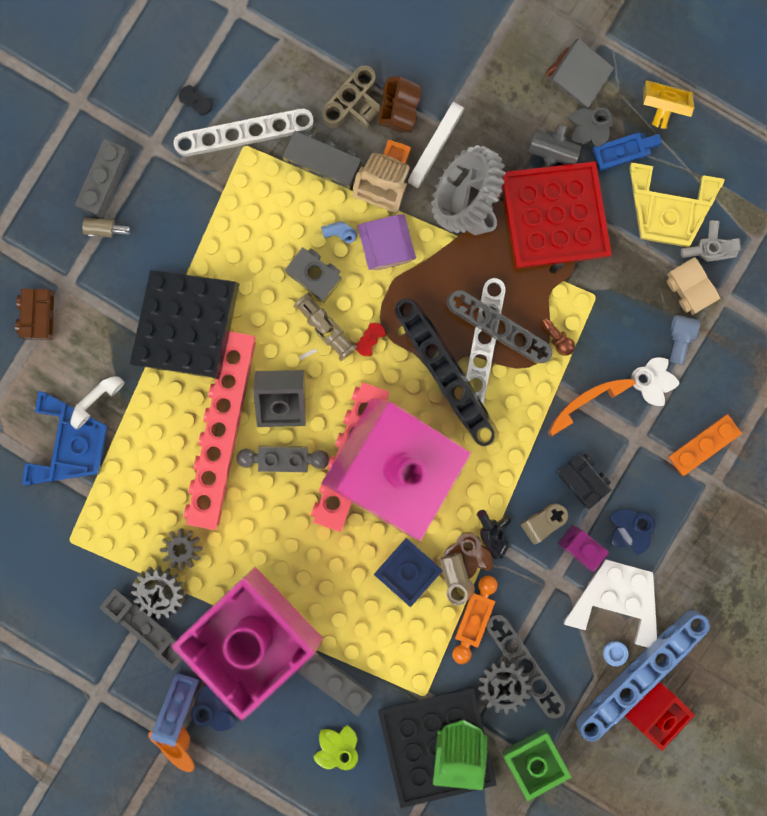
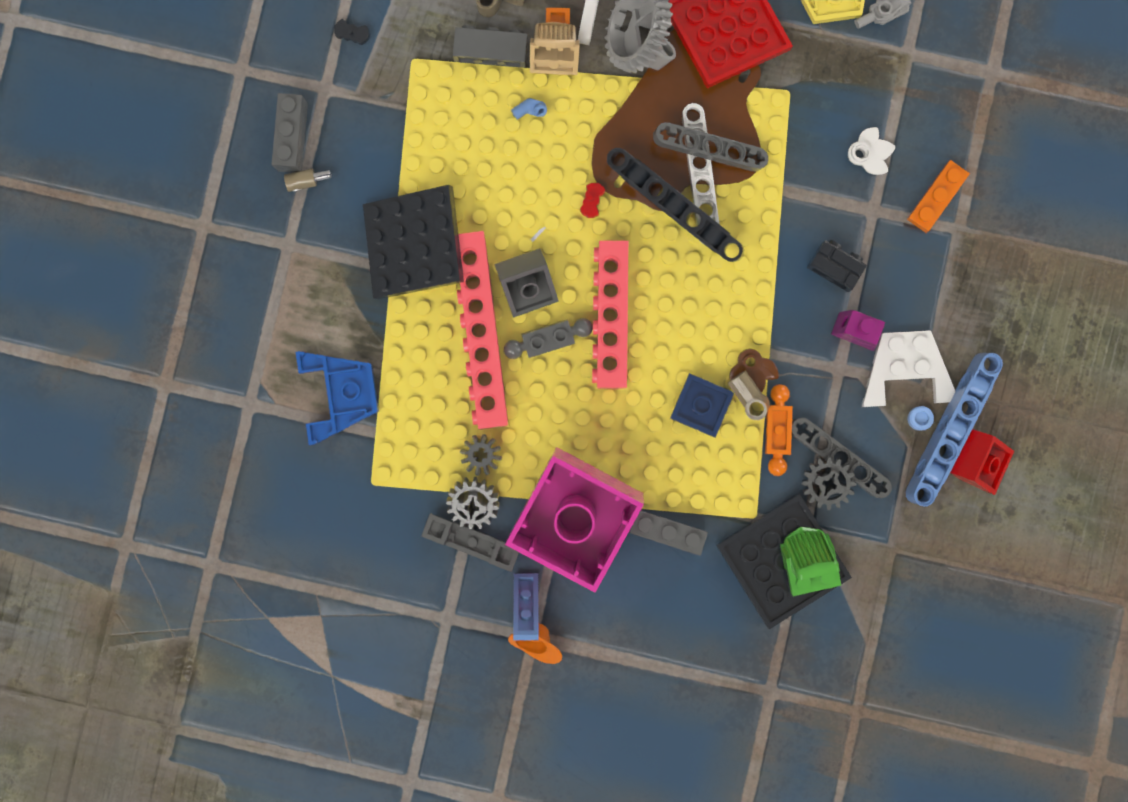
camera: 15 degrees left, 0 degrees up
(35, 314) = (268, 281): reddish brown brick -> none
(110, 385) = (361, 324): white bar -> none
(217, 711) = (564, 592): dark blue plate -> none
(243, 127) = (405, 43): white beam -> none
(303, 263) = (527, 167): dark grey brick -> none
(318, 318) = (545, 199): dark tan piece -> none
(334, 746) = (687, 592): lime plate -> none
(386, 242) = (577, 104): medium lavender slope -> none
(396, 468) = (660, 307): dark pink brick -> none
(493, 533) = (770, 342): black piece -> none
(536, 764) = (883, 545): bright green brick -> none
(541, 526) = (811, 319): dark tan piece -> none
(564, 345) = (775, 145): copper bar -> none
(613, 389) = (834, 171): orange slope -> none
(629, 532) = (895, 300): dark blue plate -> none
(684, 332) = (883, 96): sand blue pin -> none
(692, 286) = (877, 51): tan brick -> none

